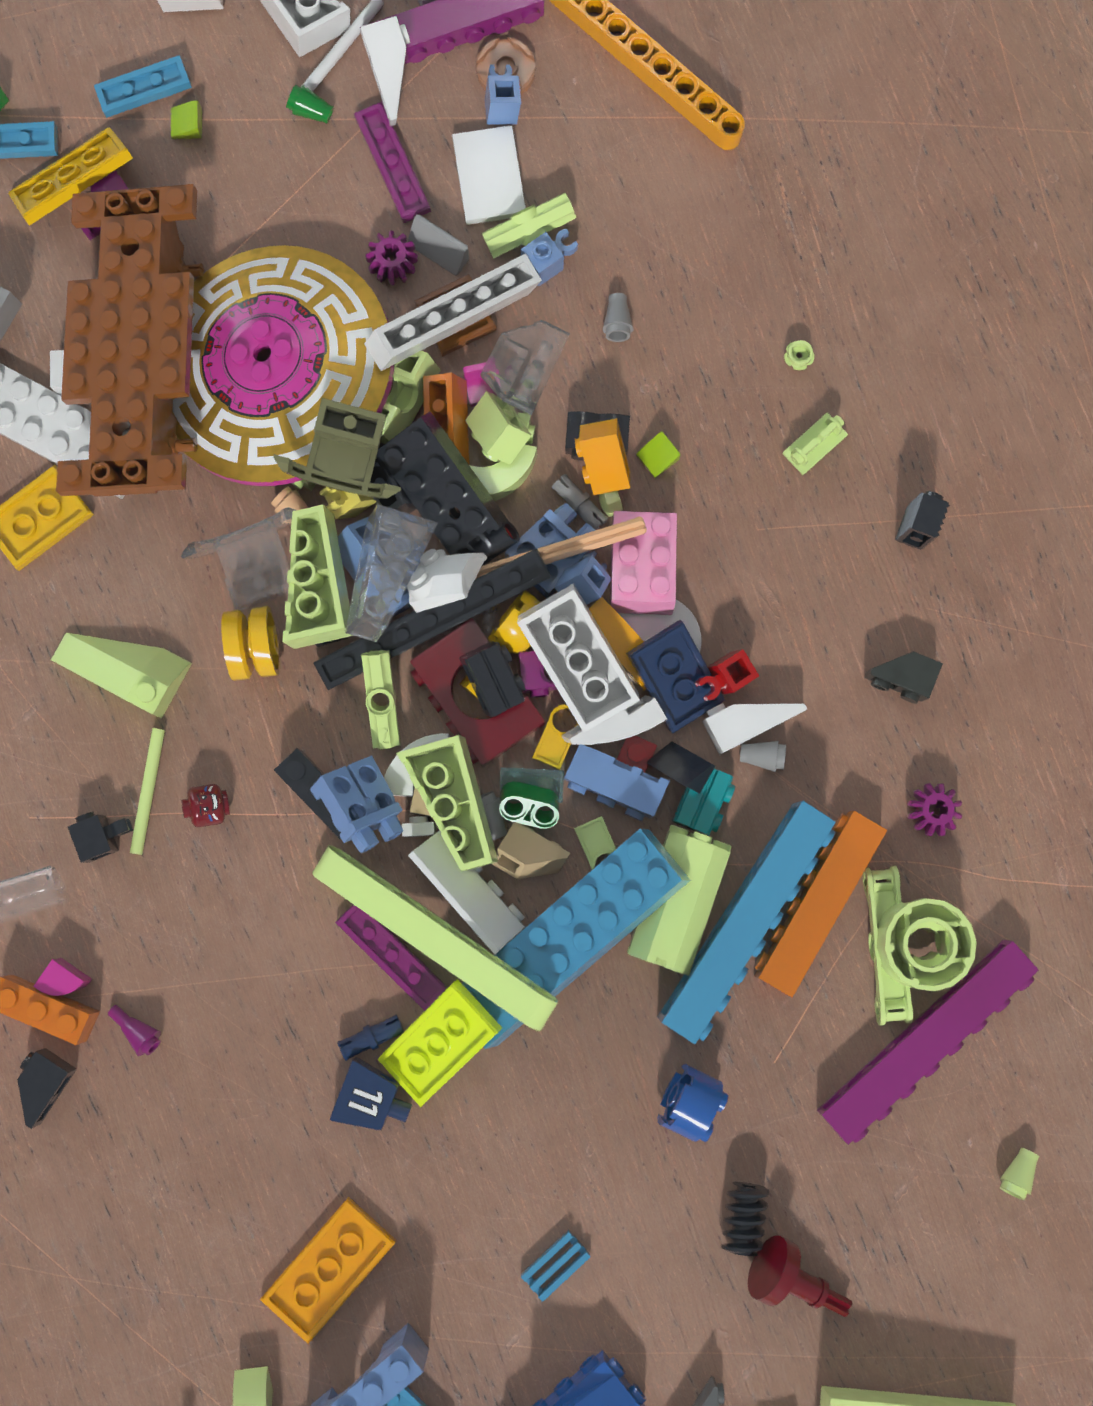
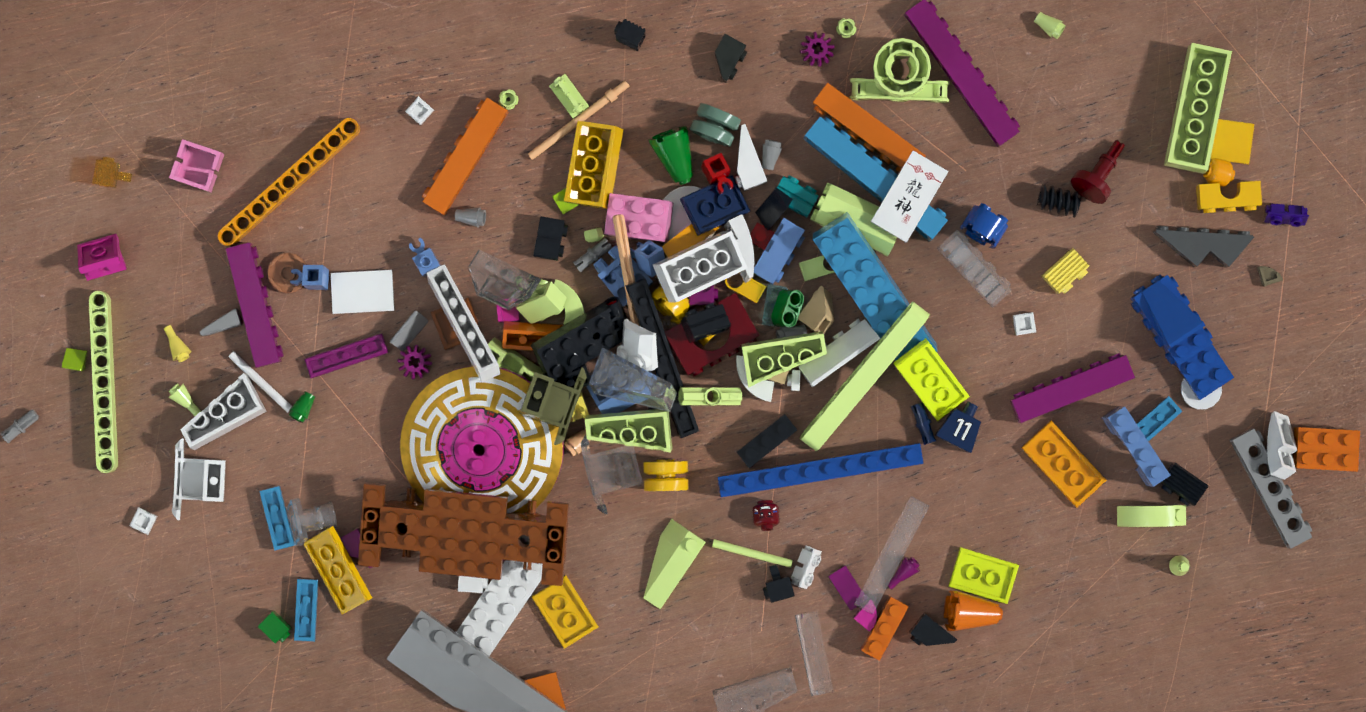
camera: 85 degrees left, 5 degrees up
(77, 1143) = (969, 611): none -> orange cone
(105, 945) = (846, 586): none -> magenta tile
(119, 874) = (804, 576): none -> white hinge
(141, 1159) = (983, 575): none -> neon yellow tile
(142, 132) = (309, 519): none -> clear plant
(157, 1008) = (891, 555): none -> clear plate
(186, 121) = (304, 491): lime slope -> none
(283, 883) = (820, 470): none -> blue brick
(360, 803) = (776, 413): medium blue hips -> none
(387, 54) = (284, 350): white slope -> none
(392, 956) = (874, 405): magenta tile -> none
(449, 1274) = (1073, 388): none -> magenta brick
(529, 225) = (402, 268): yellowish green piece -> none
(544, 1182) = (1024, 323): none -> white tile
(564, 1275) = (1085, 335): dark azure tile -> none
(604, 457) = (568, 236): light orange brick -> none
(622, 1094) = (974, 268): none -> clear wedge
(634, 1242) = (1066, 271): none -> light yellow brick
(706, 299) = (465, 156): none -> orange brick
(718, 487) = (593, 164): none -> yellow slope
(726, 978) = (909, 196): none -> white tile
(747, 607) = (674, 153): none -> green cone
(766, 230) = (419, 110): none -> white tile
(805, 664) = (714, 126): none -> sand green wheel
(823, 504) = (610, 96): none -> light nougat bar
(980, 848) = (851, 27): none -> yellowish green plate

